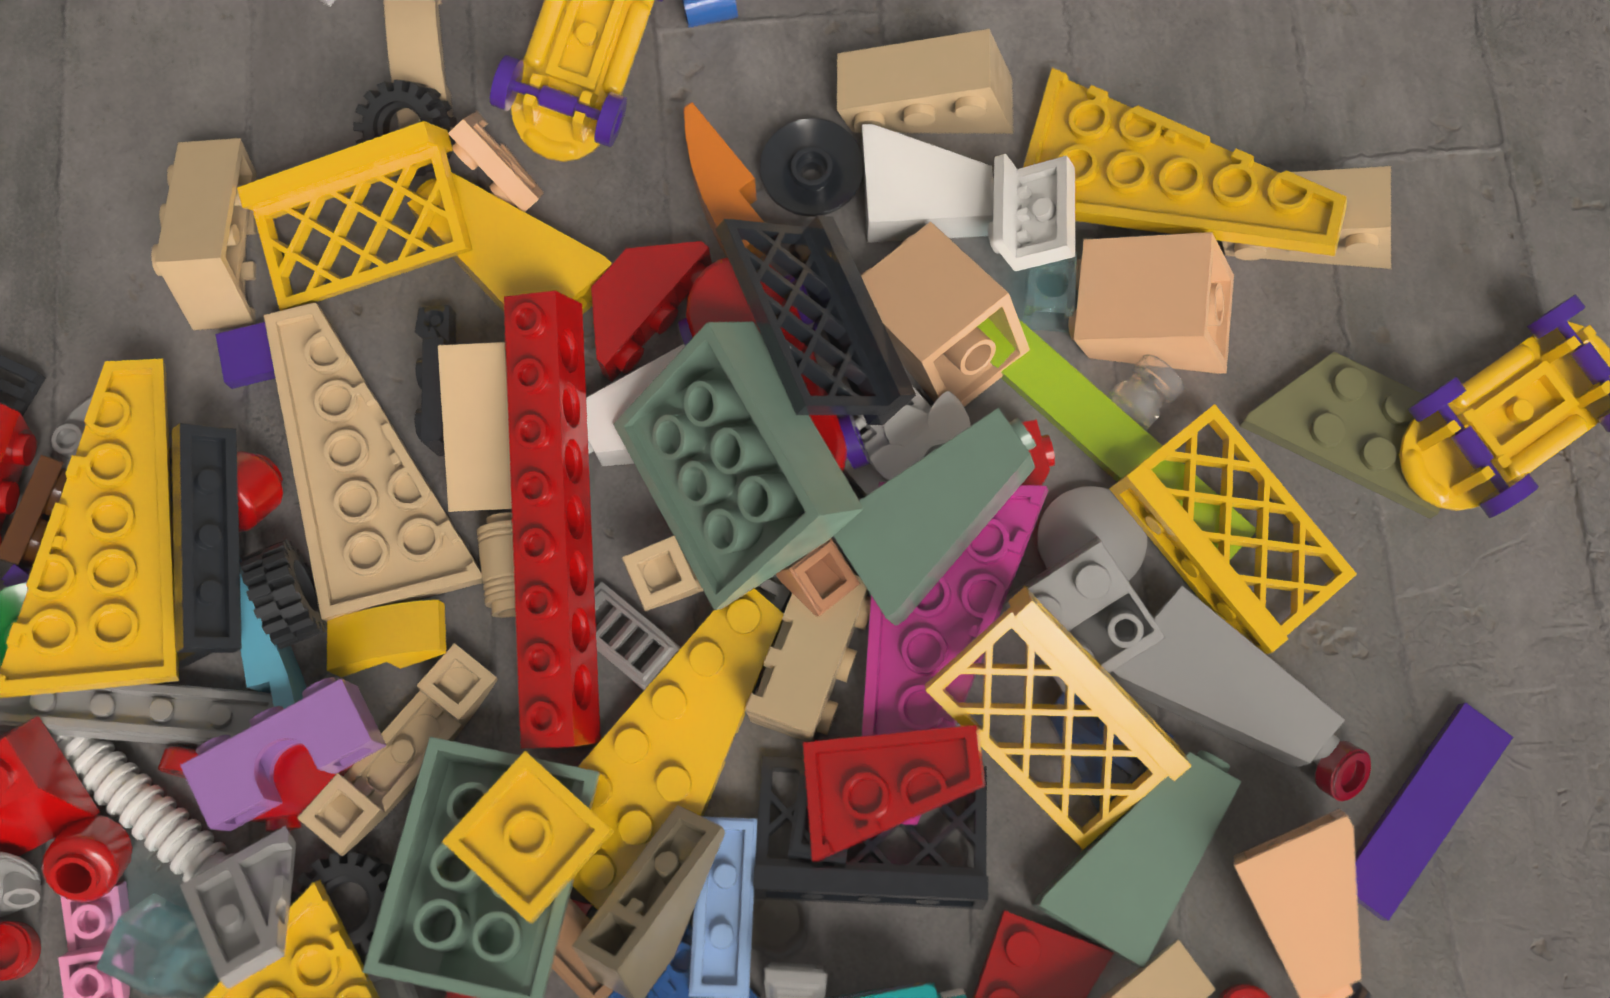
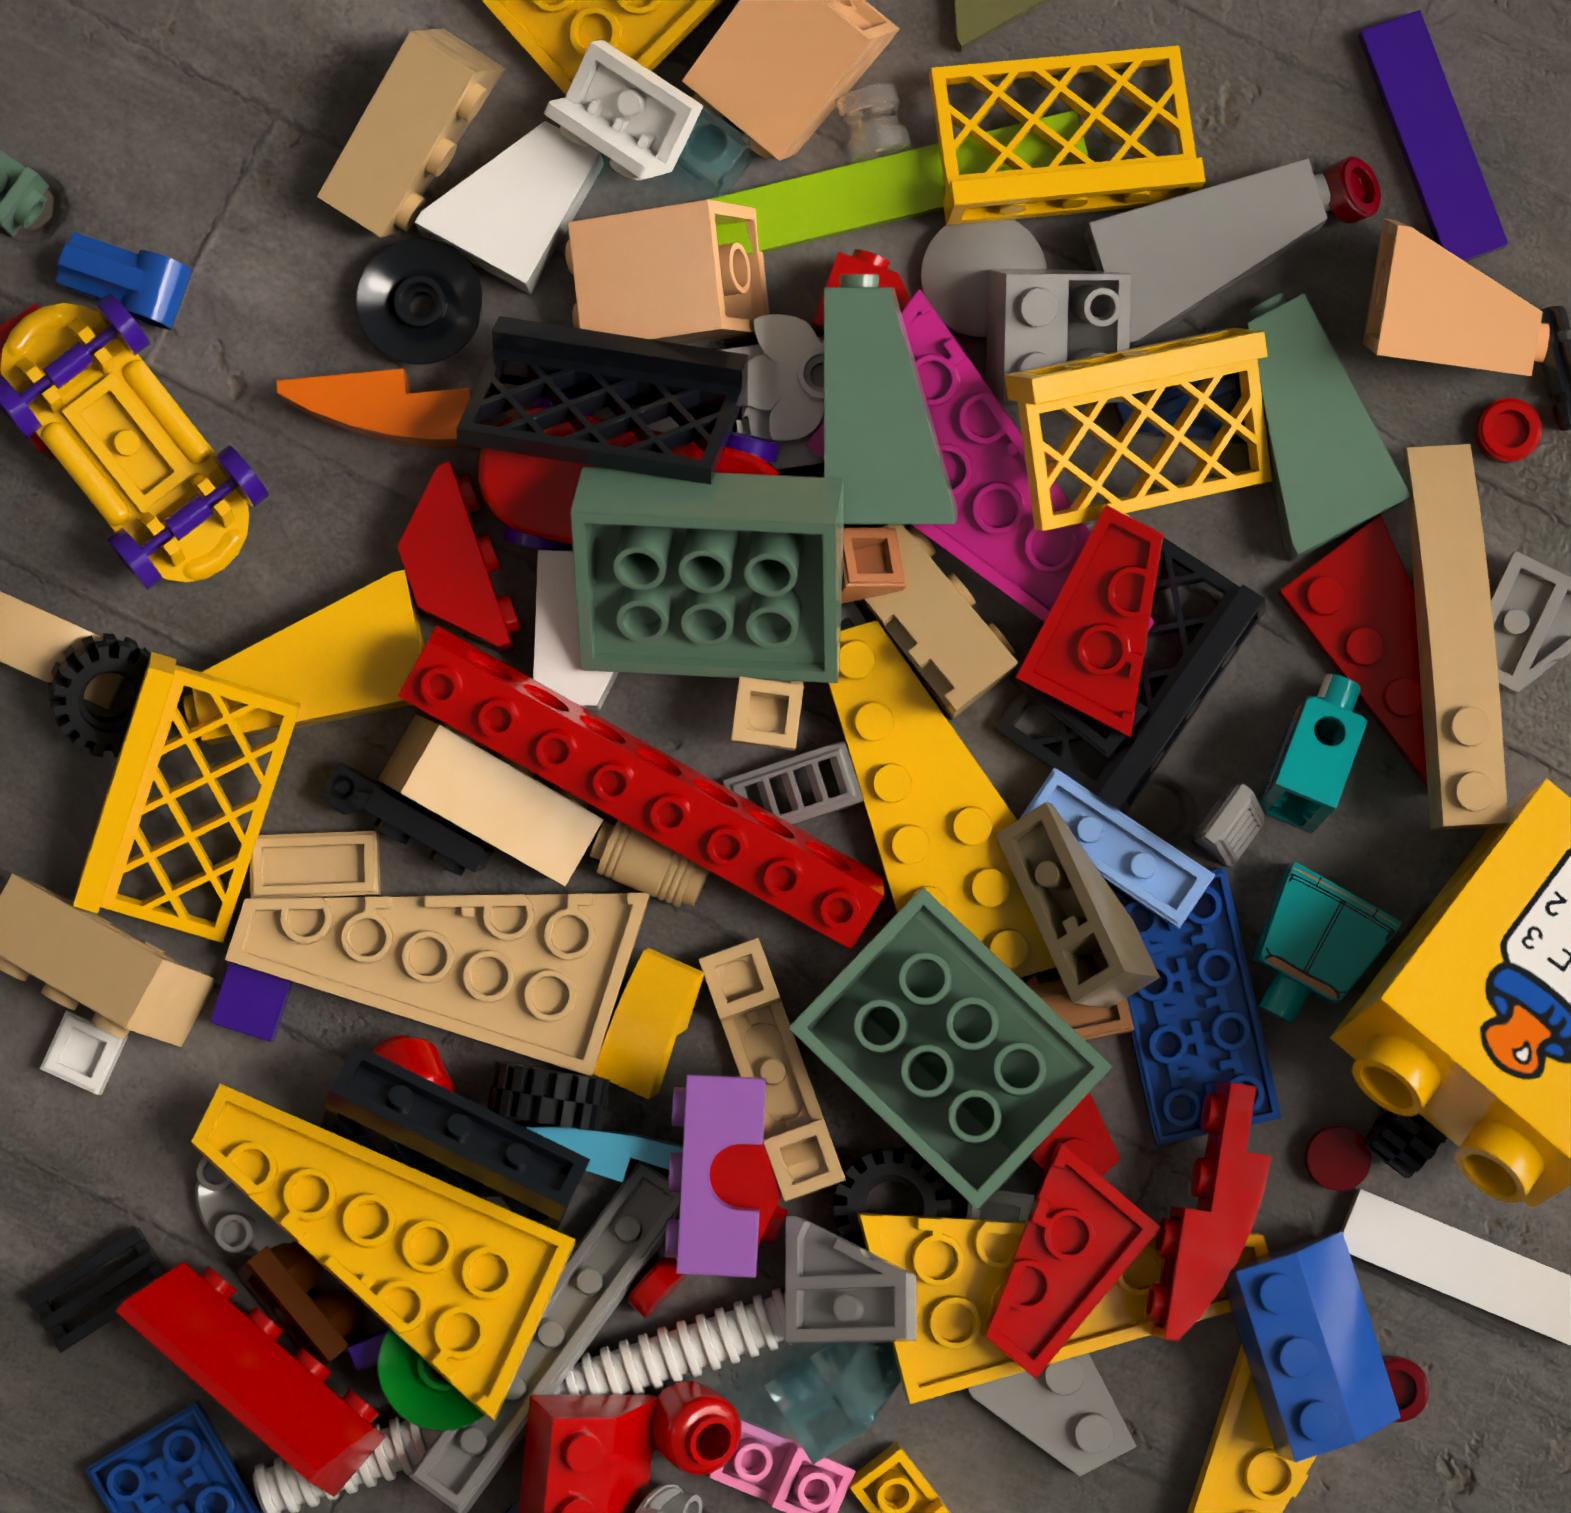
camera: 60 degrees left, 10 degrees up
(138, 271) = (82, 1053): none -> white tile
(371, 339) = (316, 865): none -> tan tile
(479, 149) = (187, 631): light nougat wing -> none
(528, 837) = (946, 985): yellow tile -> none

